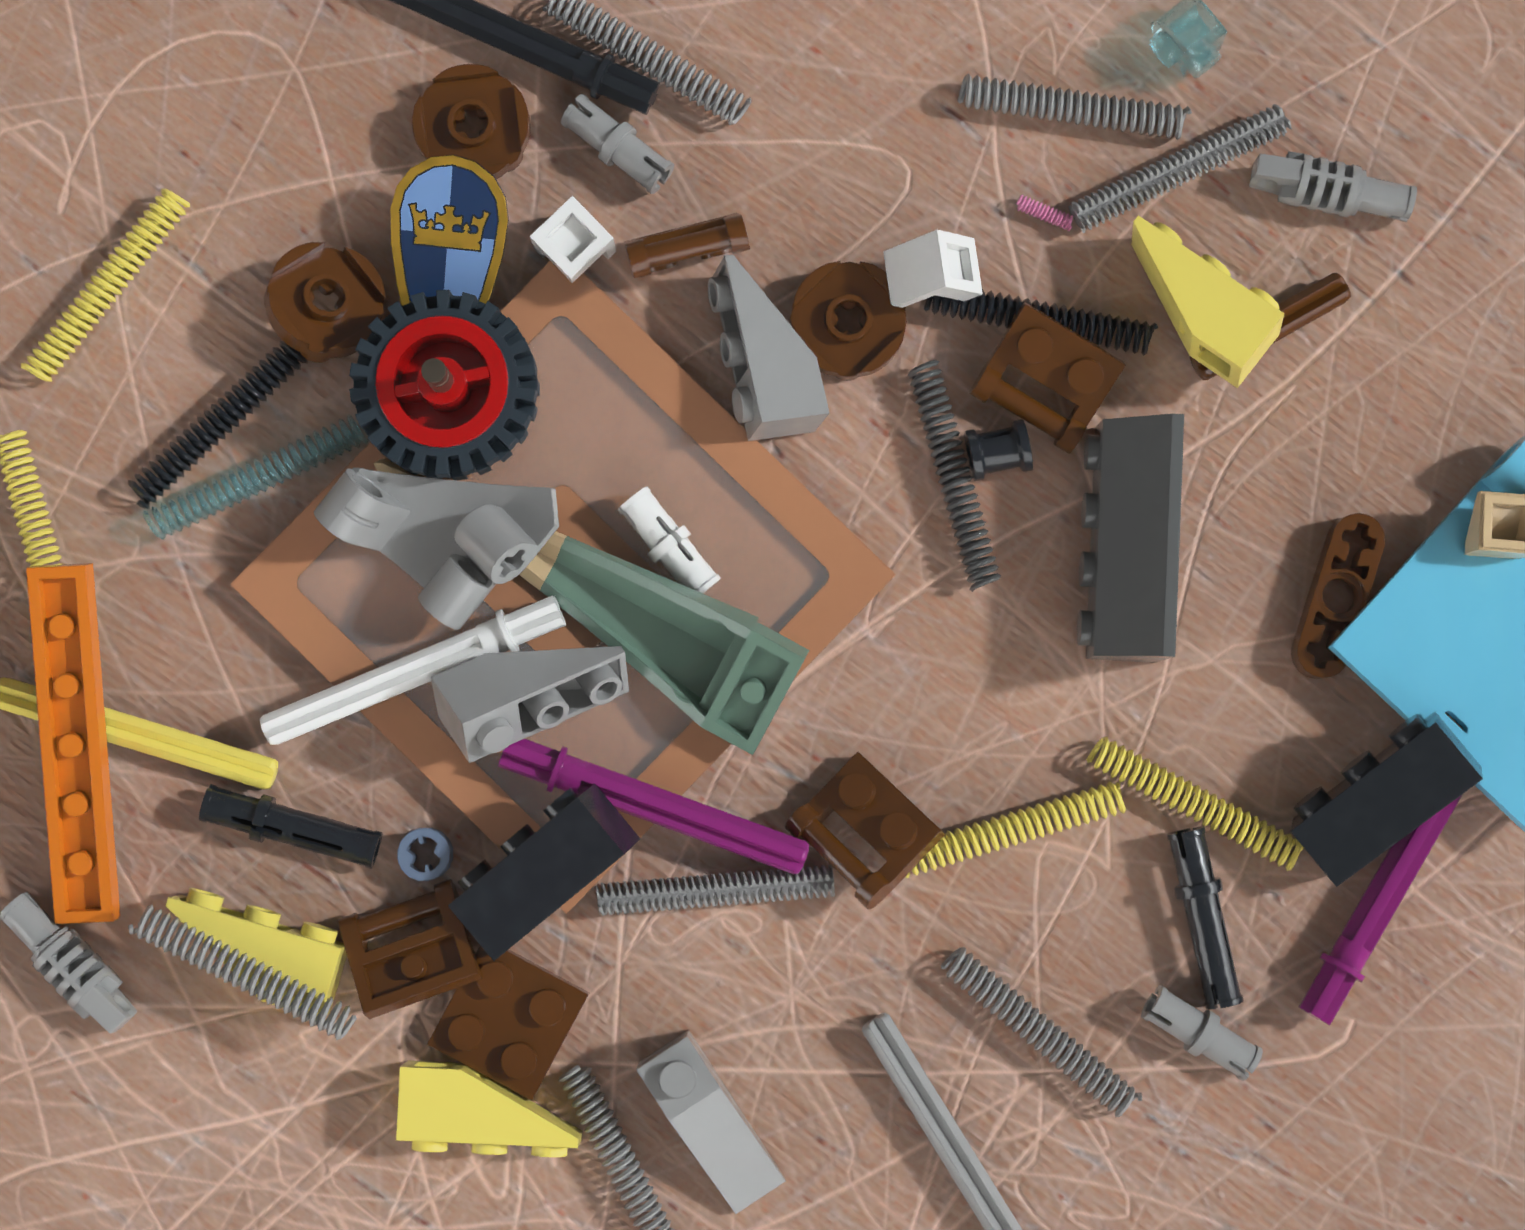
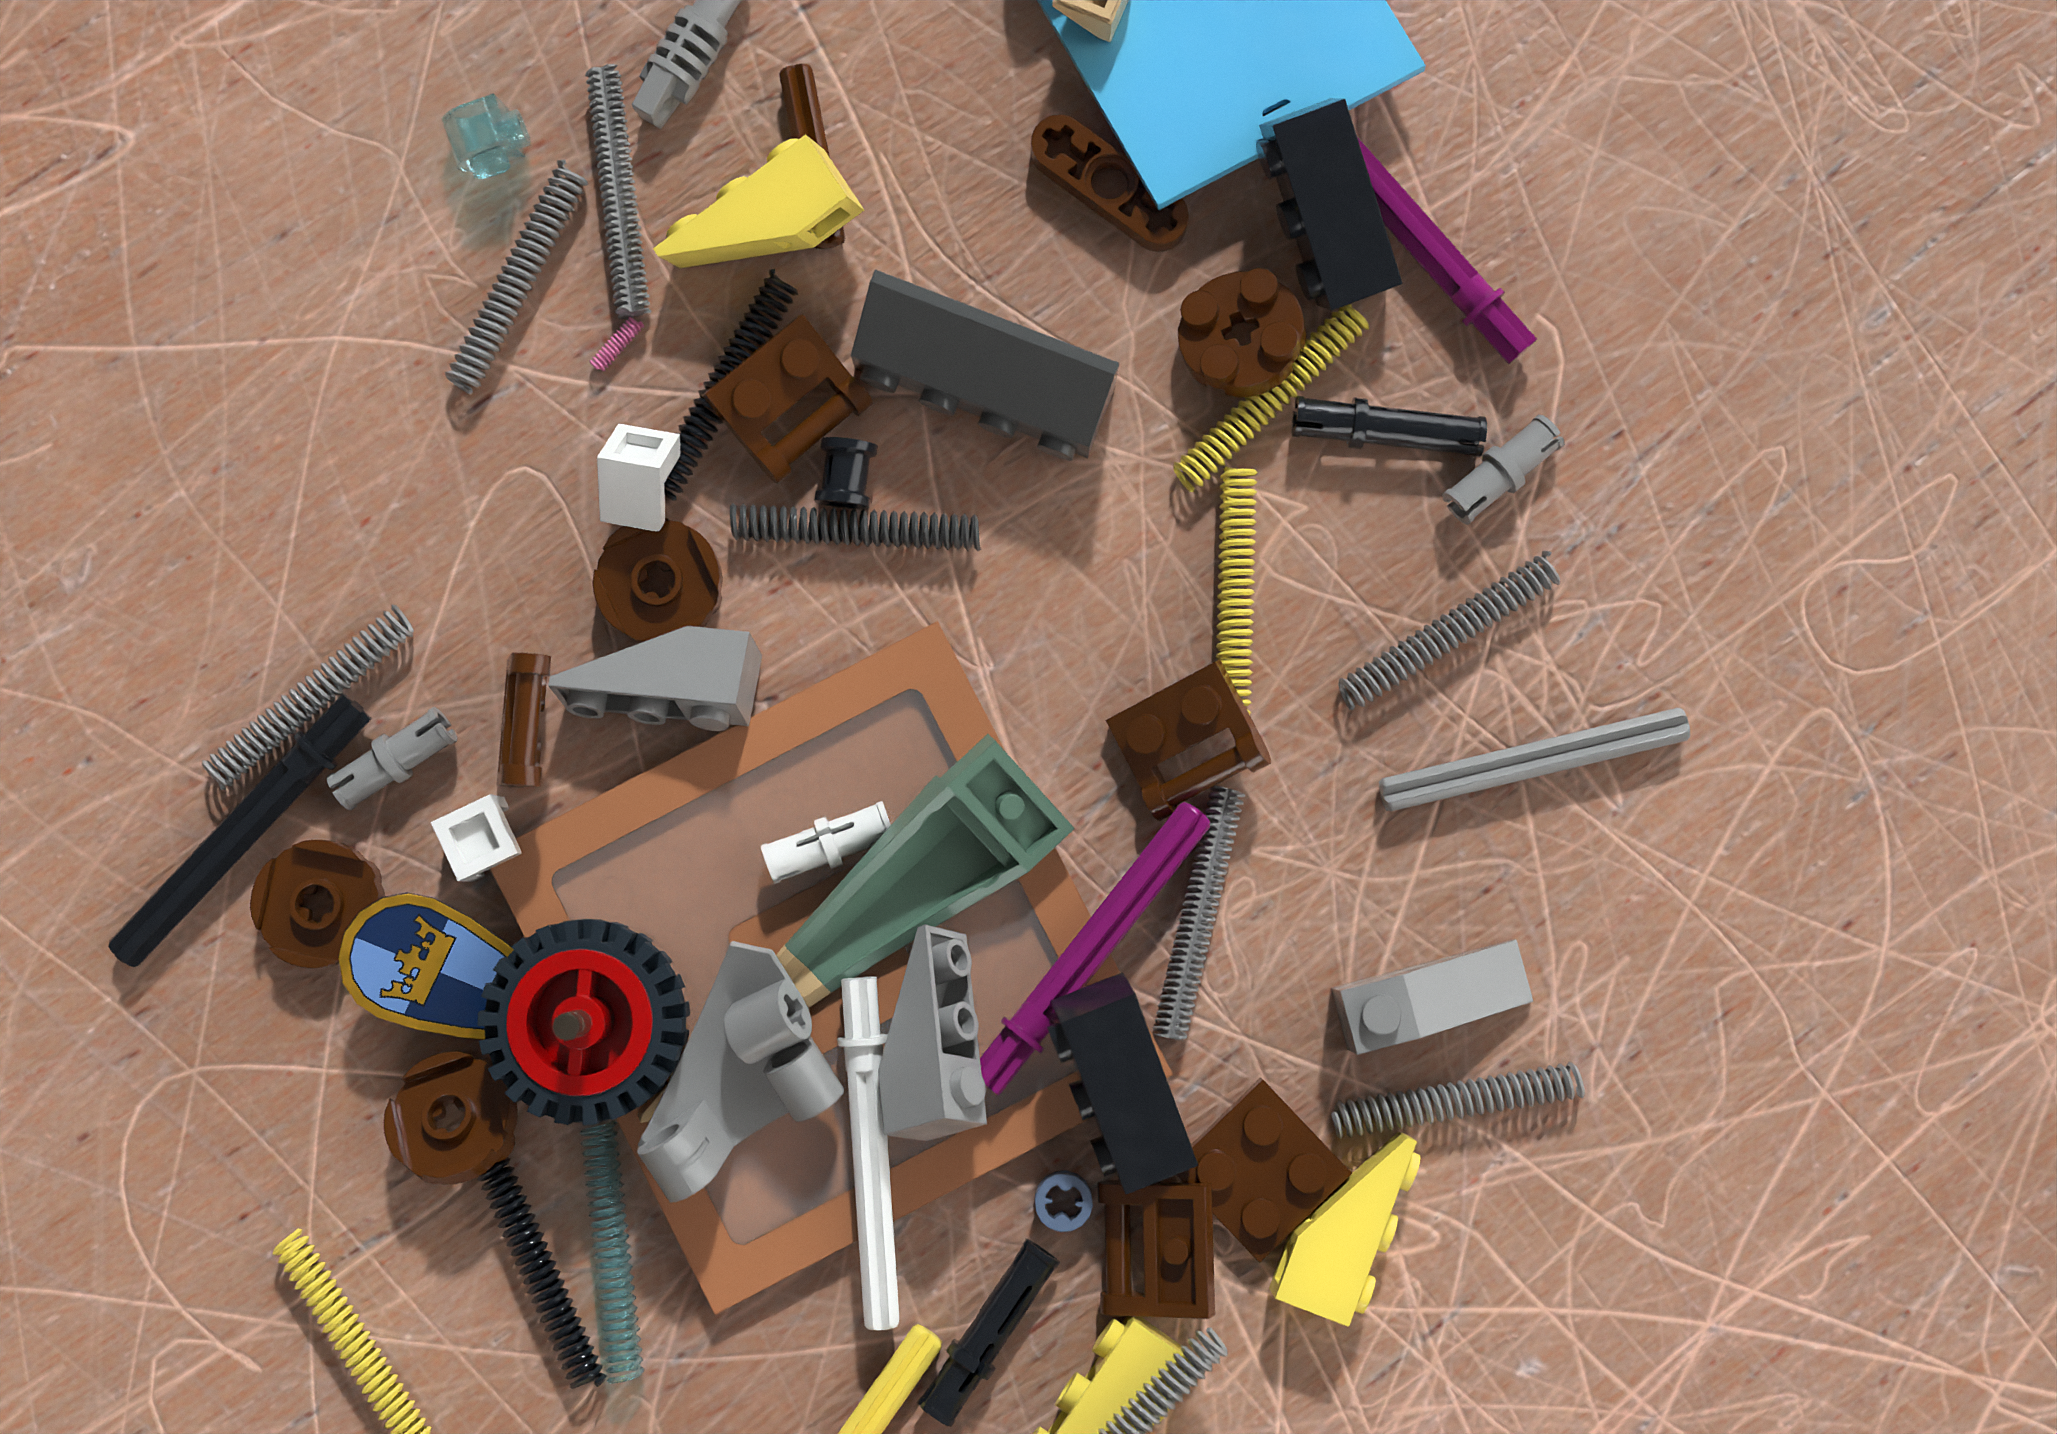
camera: 70 degrees left, 0 degrees up
(1251, 726) = (1234, 299): none -> reddish brown plate

